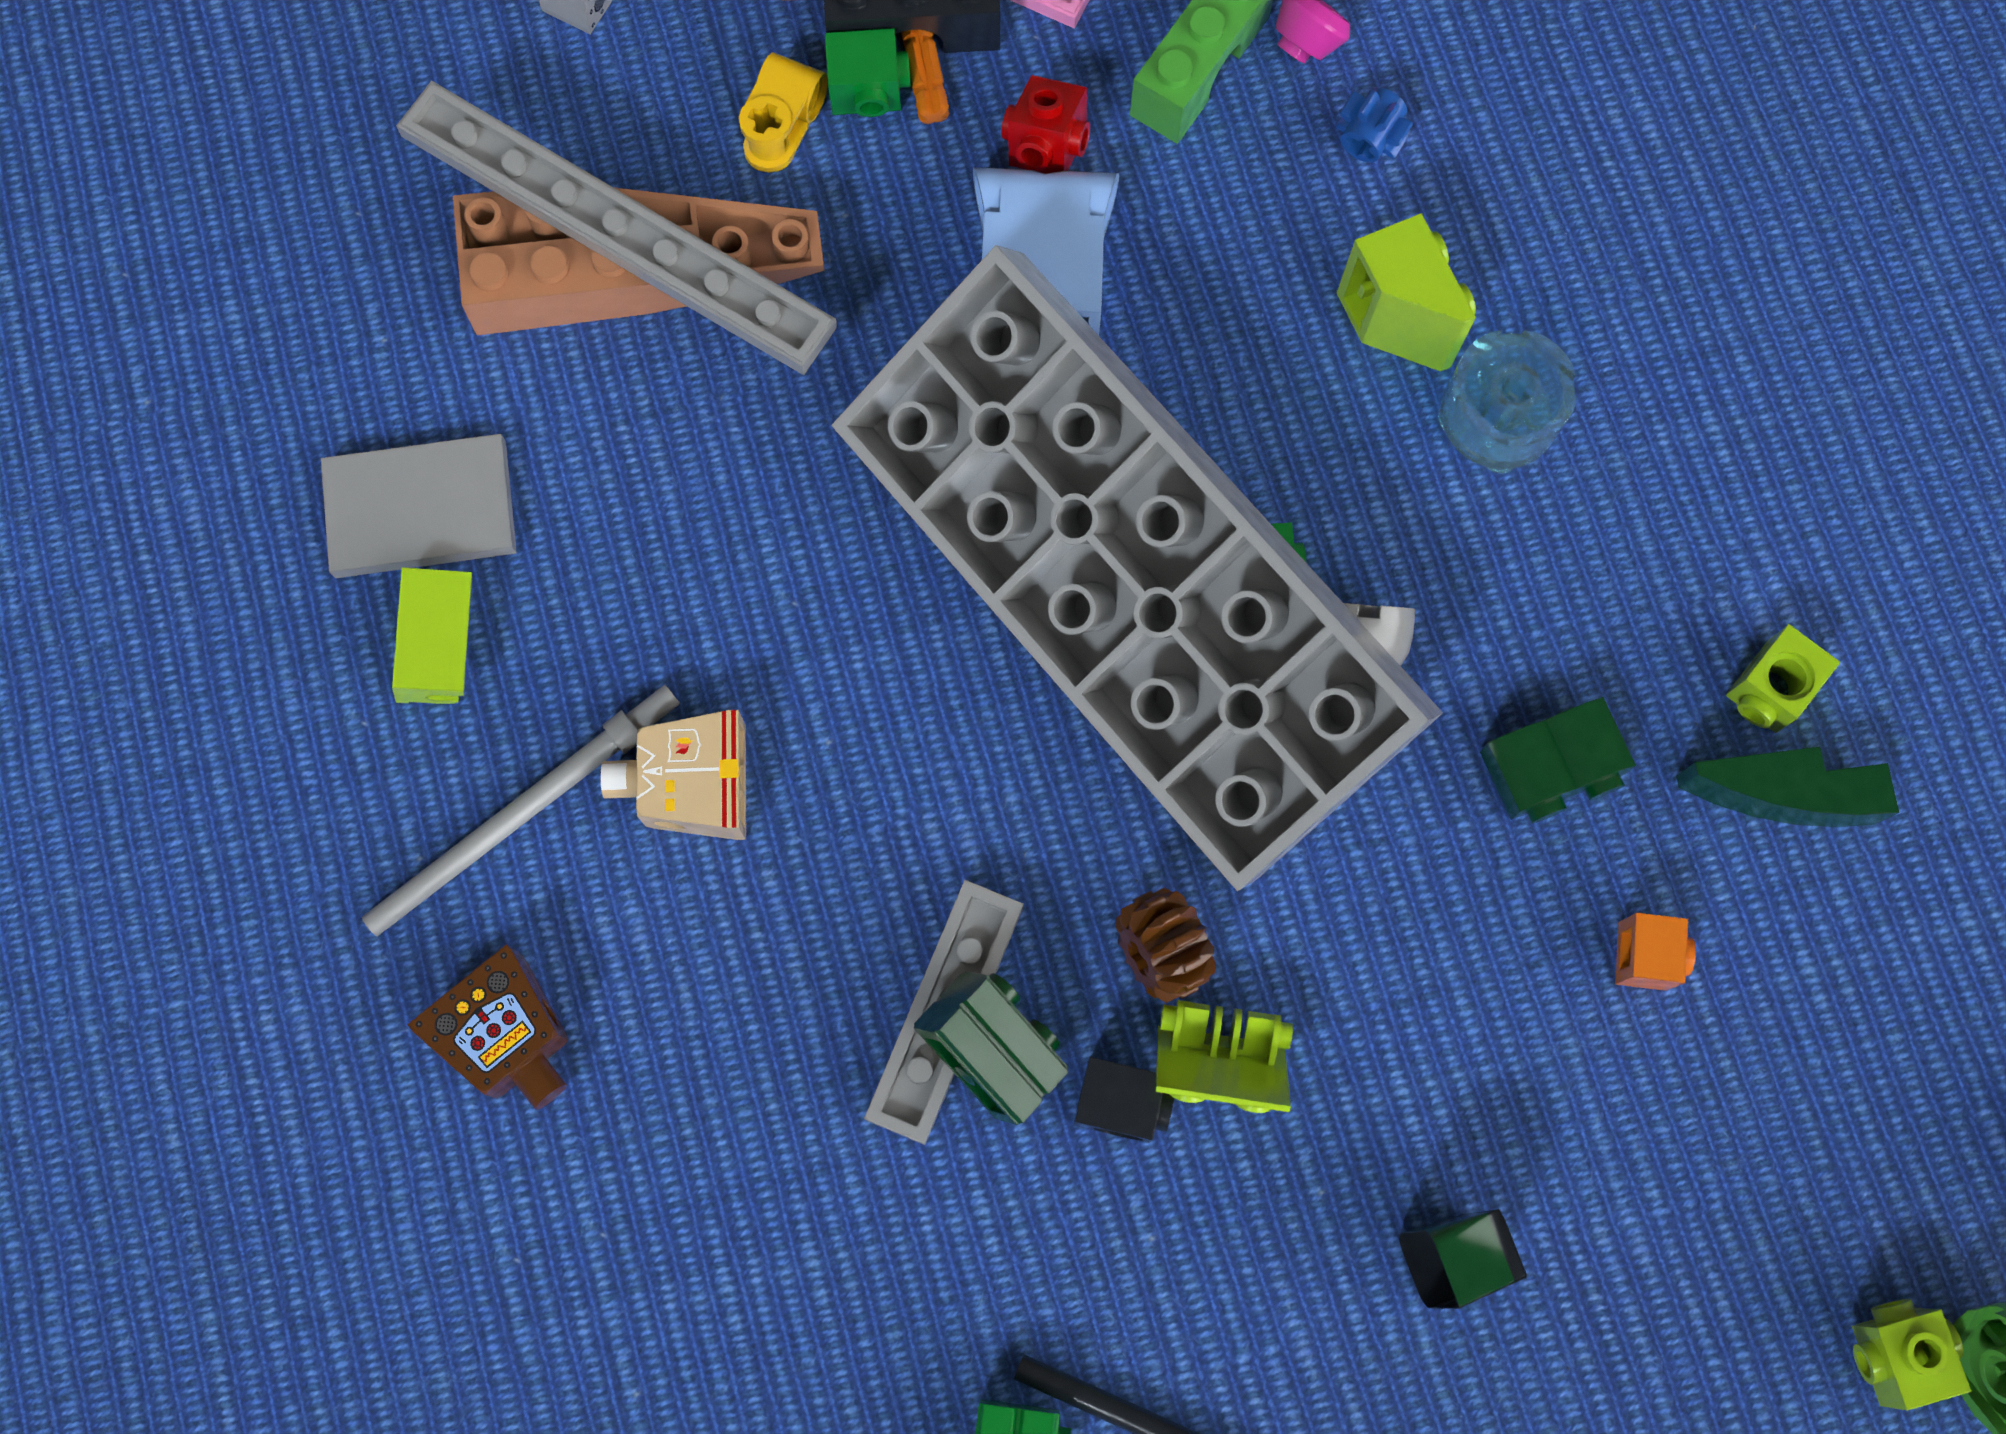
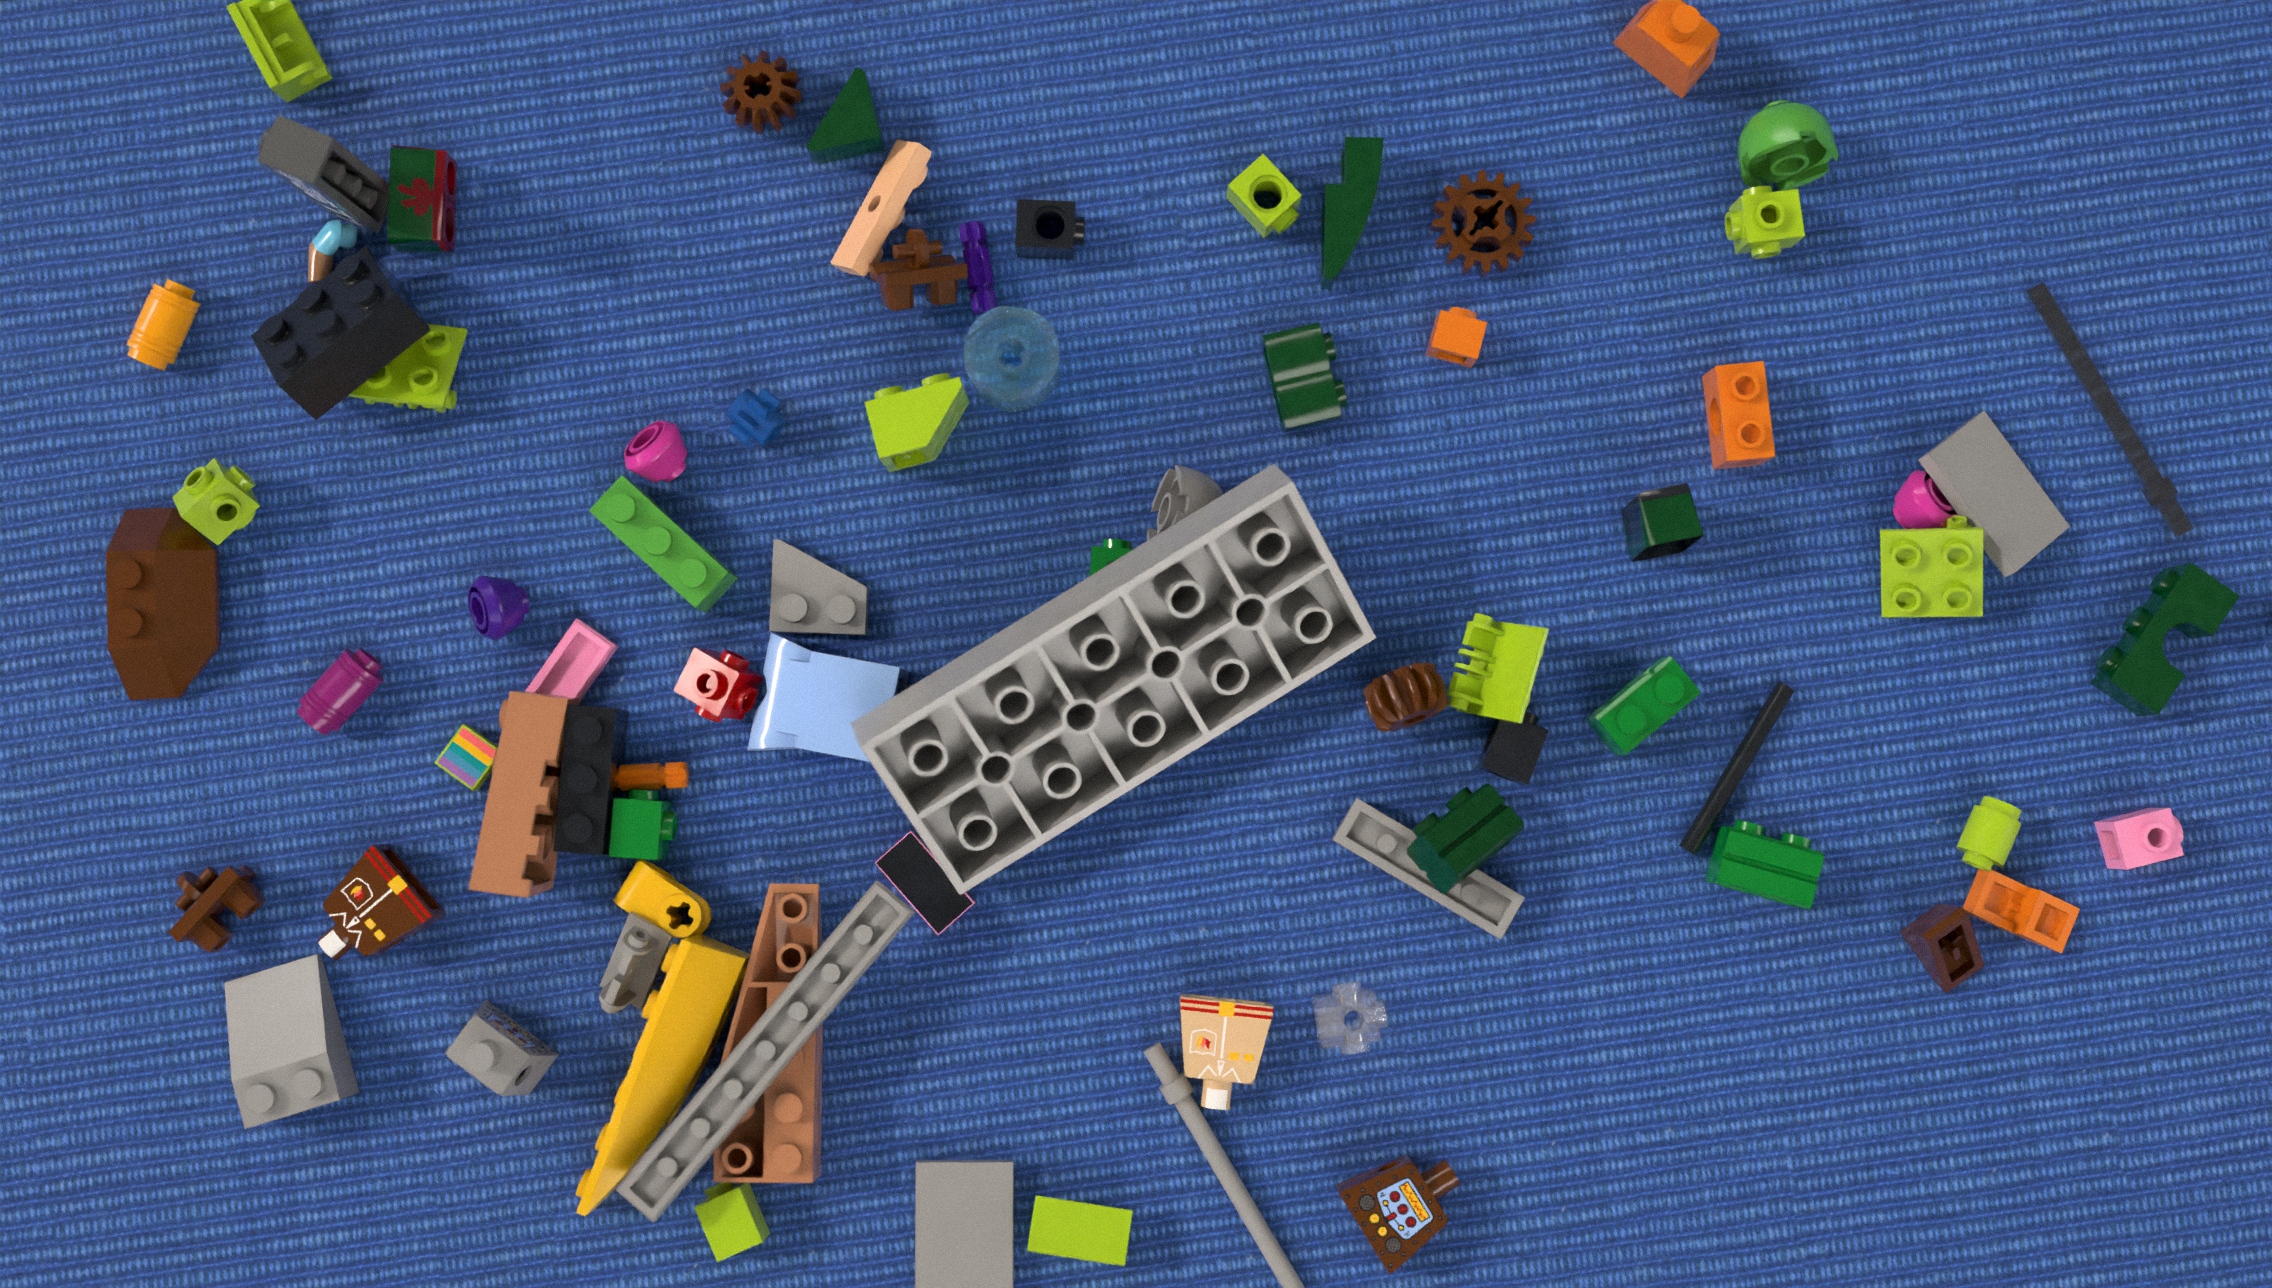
camera: 80 degrees left, 10 degrees up
(413, 235) = (731, 1218): none -> lime brick
(608, 126) = (668, 1059): none -> yellow wedge
(701, 83) = (633, 964): none -> light grey hinge
(720, 913) = (1330, 1014): none -> clear brick
(829, 397) = (923, 882): none -> black tile
(1170, 226) = (814, 596): none -> light grey wing
(1207, 1272) = (1643, 705): none -> green brick
(1580, 251) = (937, 272): none -> reddish brown hips
(1618, 351) = (978, 266): none -> dark purple axle
(1631, 1355) = (1738, 415): none -> orange brick
(1658, 232) = (882, 208): none -> light nougat tile
(1682, 399) = (1033, 214): none -> black brick
(1753, 177) = (849, 125): none -> dark green slope
(1767, 76) = (761, 76): none -> reddish brown gear
(1840, 957) = (1469, 210): none -> reddish brown gear

